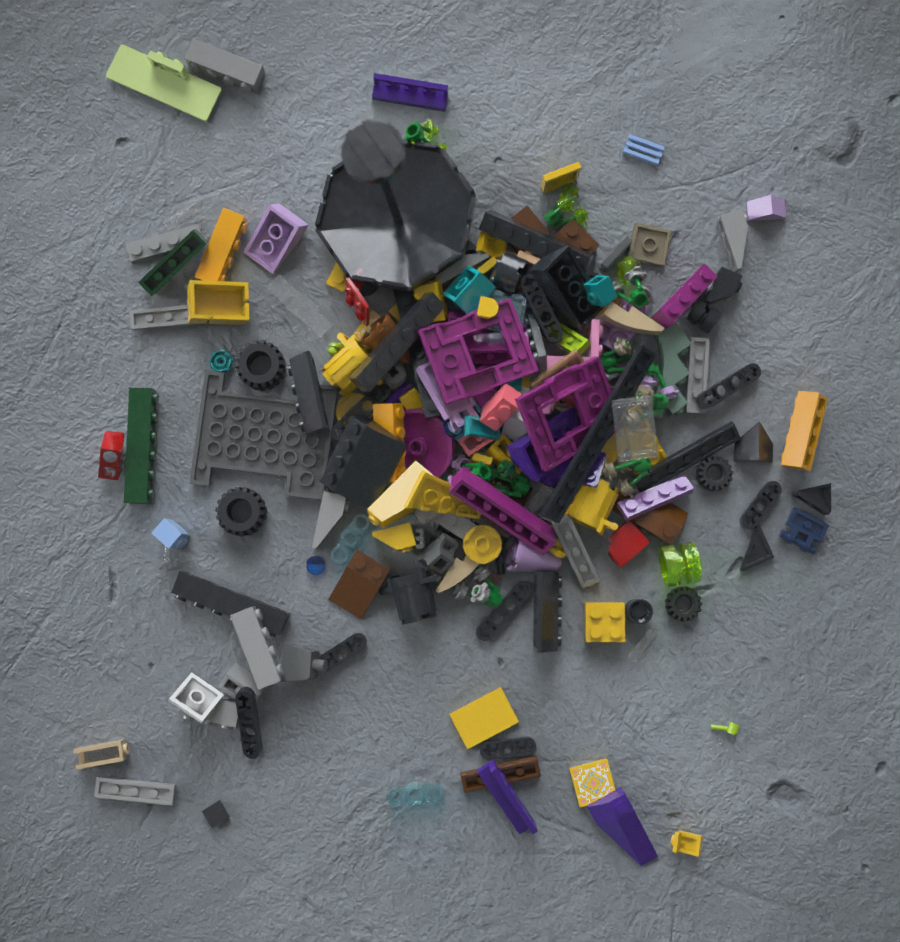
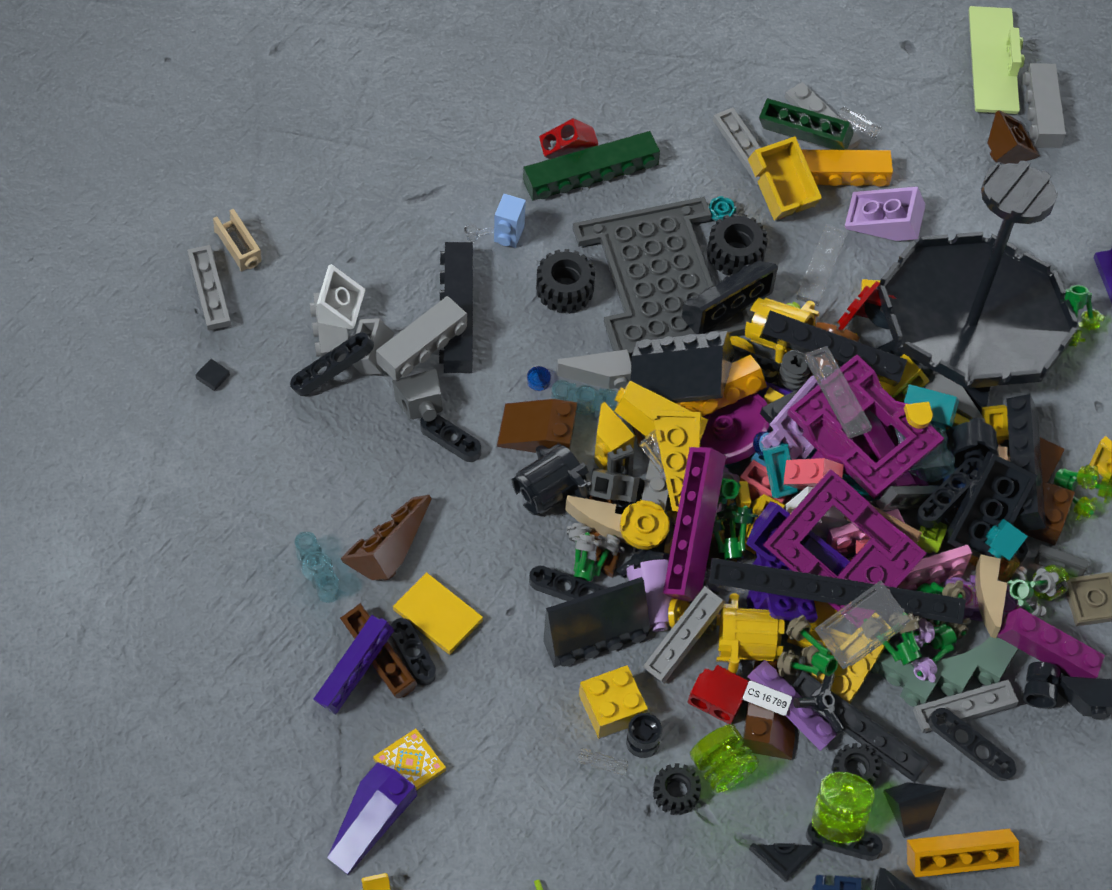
camera: 65 degrees right, 25 degrees down
(247, 109) = (1010, 140): none -> reddish brown slope
(418, 737) = (388, 547): none -> reddish brown wedge
(446, 360) = (838, 392): none -> clear tile
(648, 514) = (767, 698): none -> white sticker
(667, 478) = (822, 703): none -> black piece
(749, 509) = (843, 807): none -> clear neon green wheel

